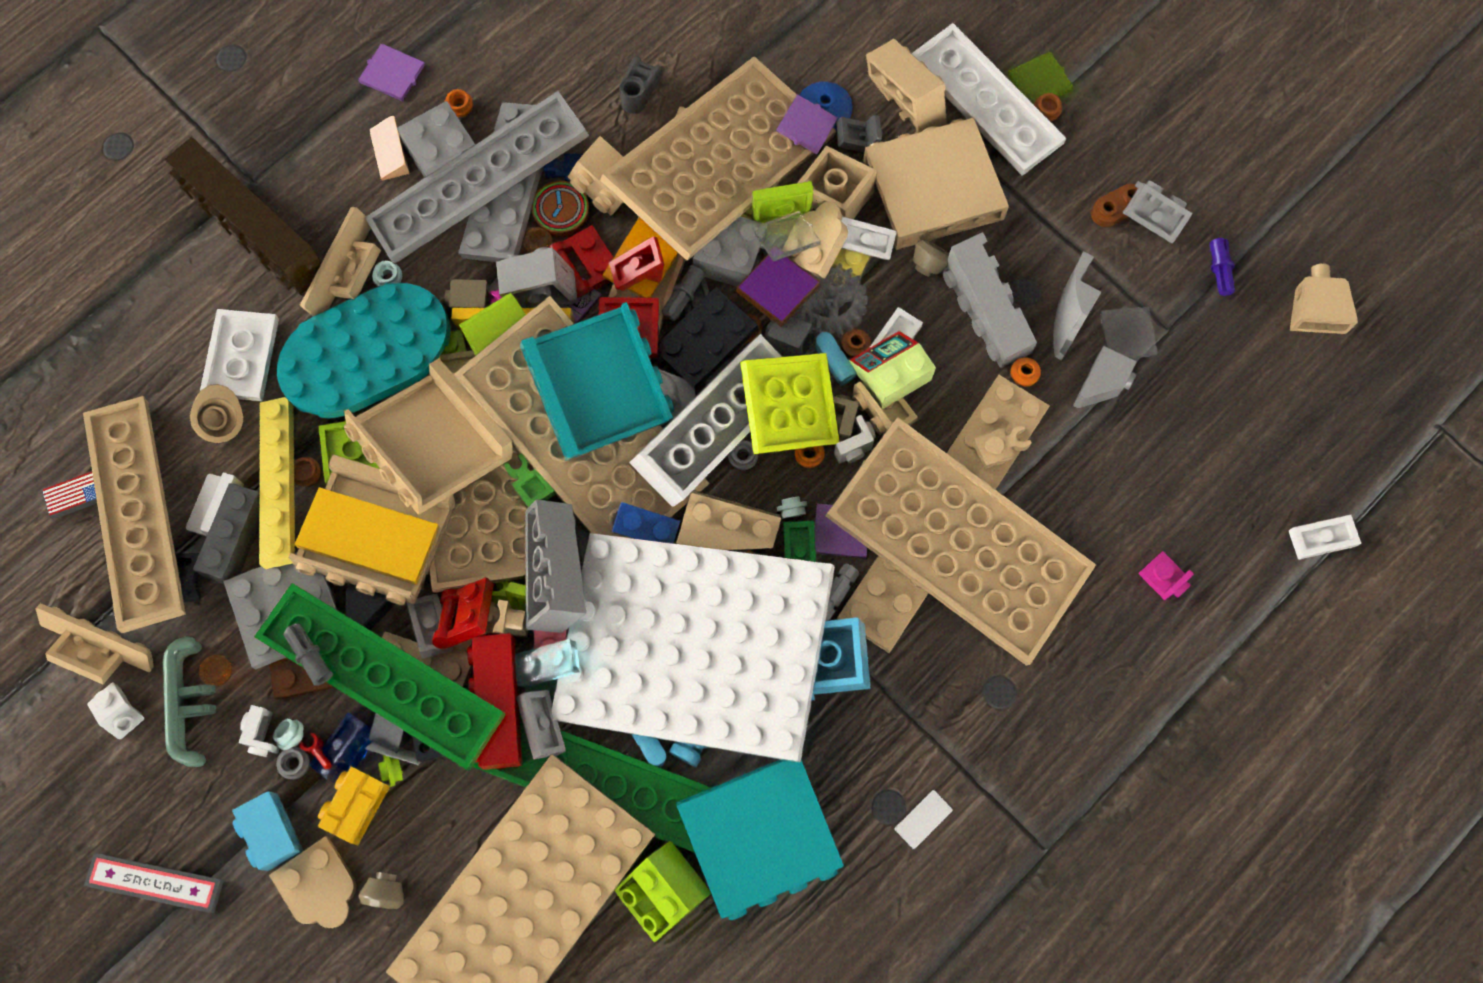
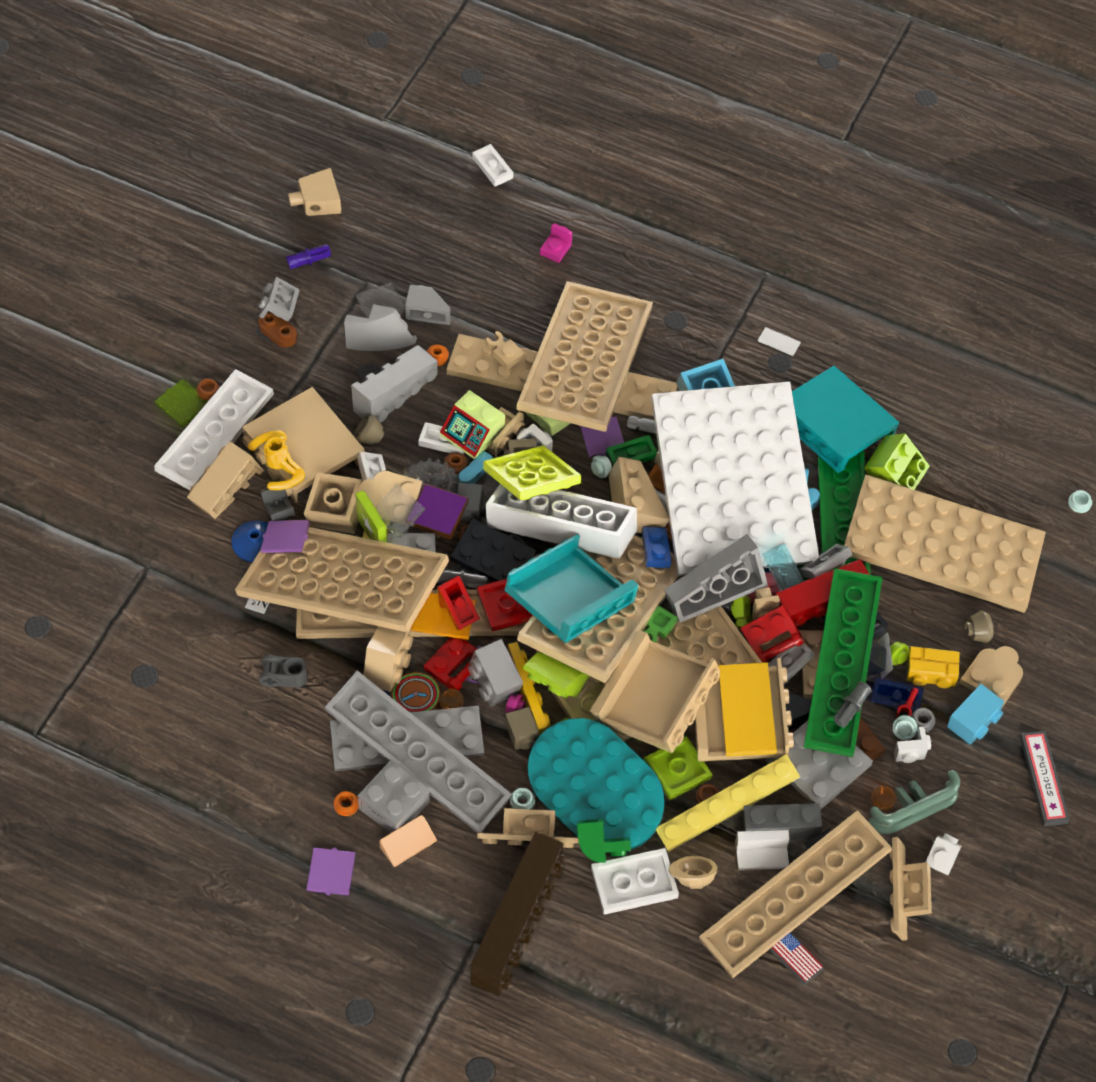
camera: 110 degrees left, 15 degrees down
(283, 321) = (593, 842): none -> green brick
(912, 135) = (278, 458): none -> yellow piece

